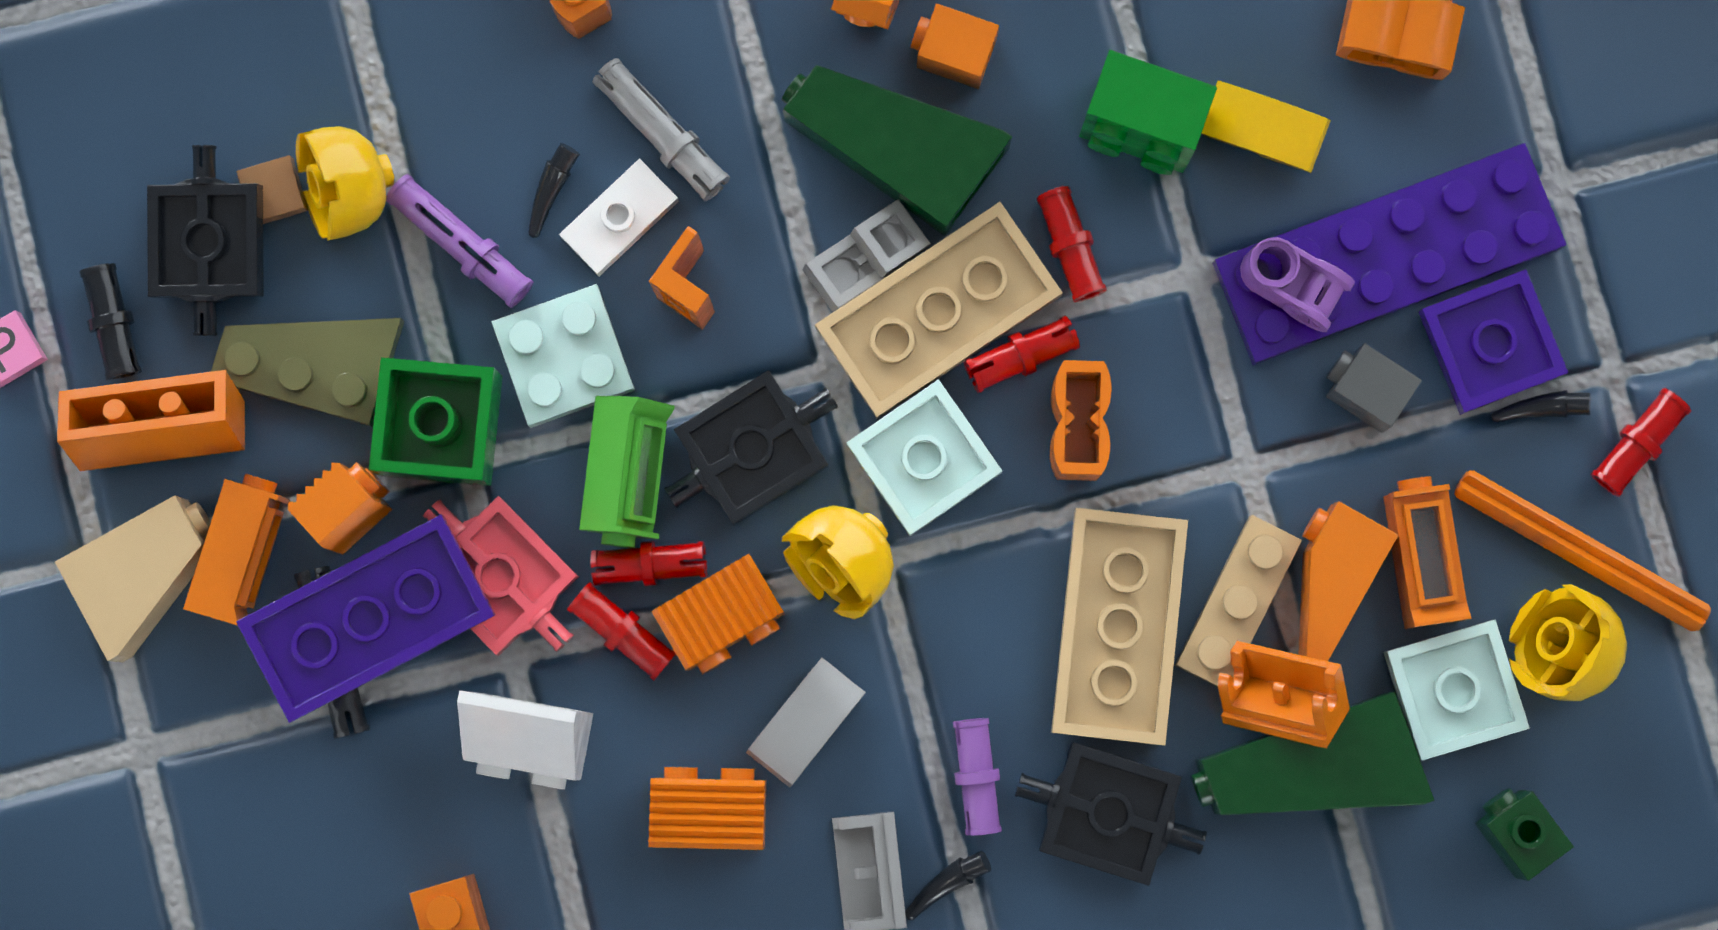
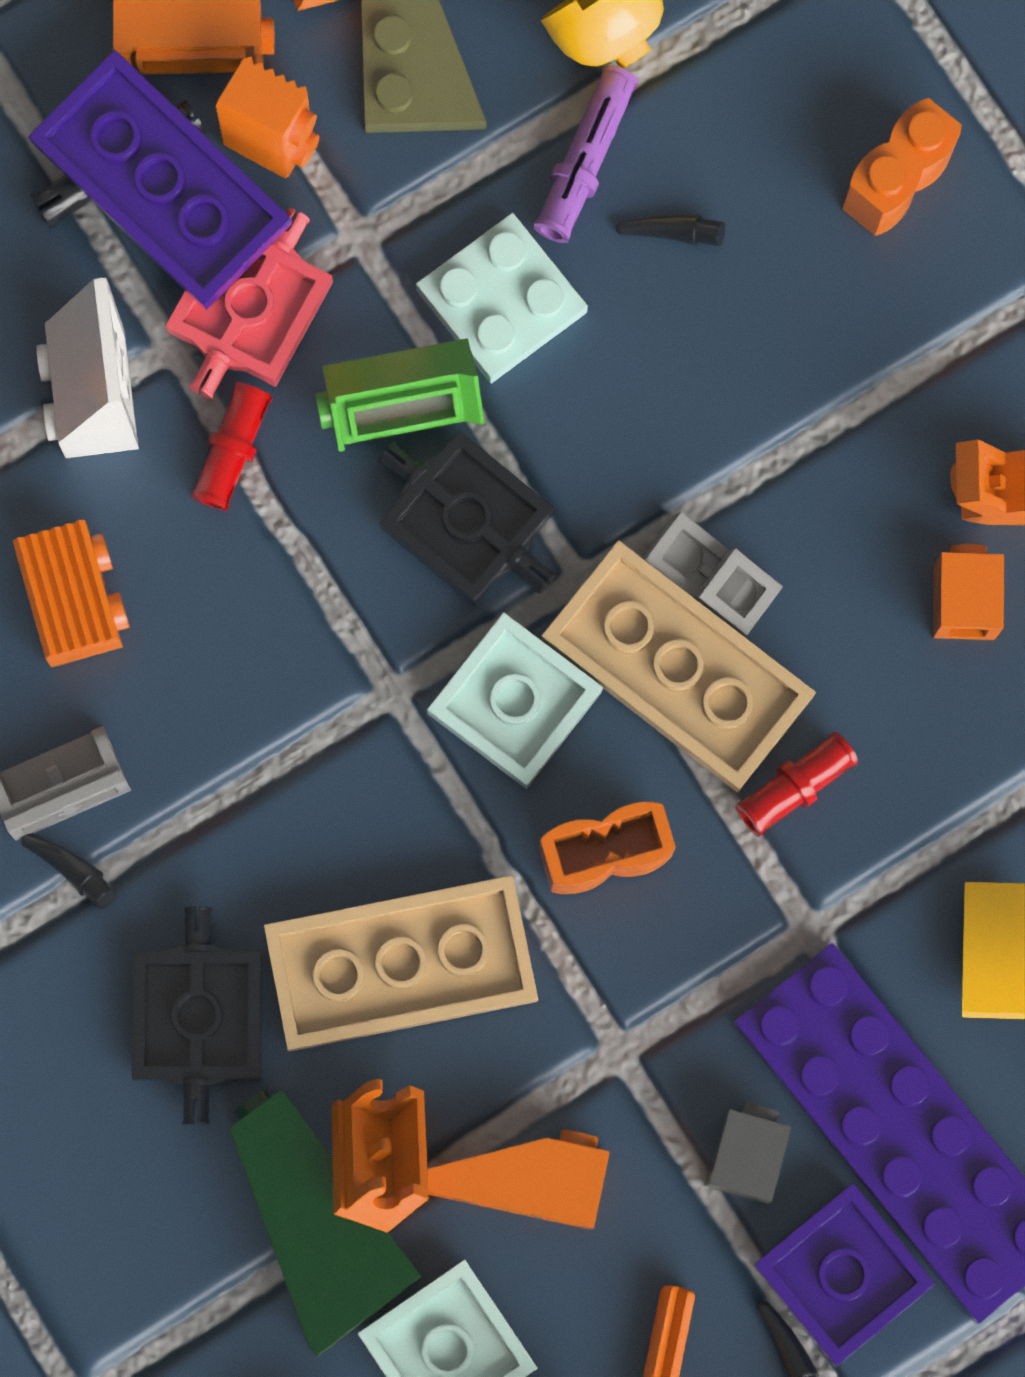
camera: 65 degrees right, 5 degrees down
(435, 421) = (387, 187): green brick -> none
(619, 217) = (666, 308): white plate -> none
(648, 563) = (311, 452): red pin -> none
(675, 144) = (761, 340): light grey pin -> none
(675, 290) = (621, 374): orange panel -> none
(719, 614) = (280, 540): orange brick -> none
(805, 722) = (195, 665): light grey slope -> none
(842, 555) = (381, 645): yellow cylinder -> none
(897, 143) = (841, 574): dark green slope -> none
(977, 776) = (193, 862): medium lavender pin -> none
(1021, 354) = (660, 768): red pin -> none
(1147, 113) = (962, 812): green brick -> none
(1238, 599) = (473, 1084): tan plate -> none
(1299, 283) = (833, 1034): medium lavender piece -> none
(1426, 554) = (586, 1270): orange window -> none

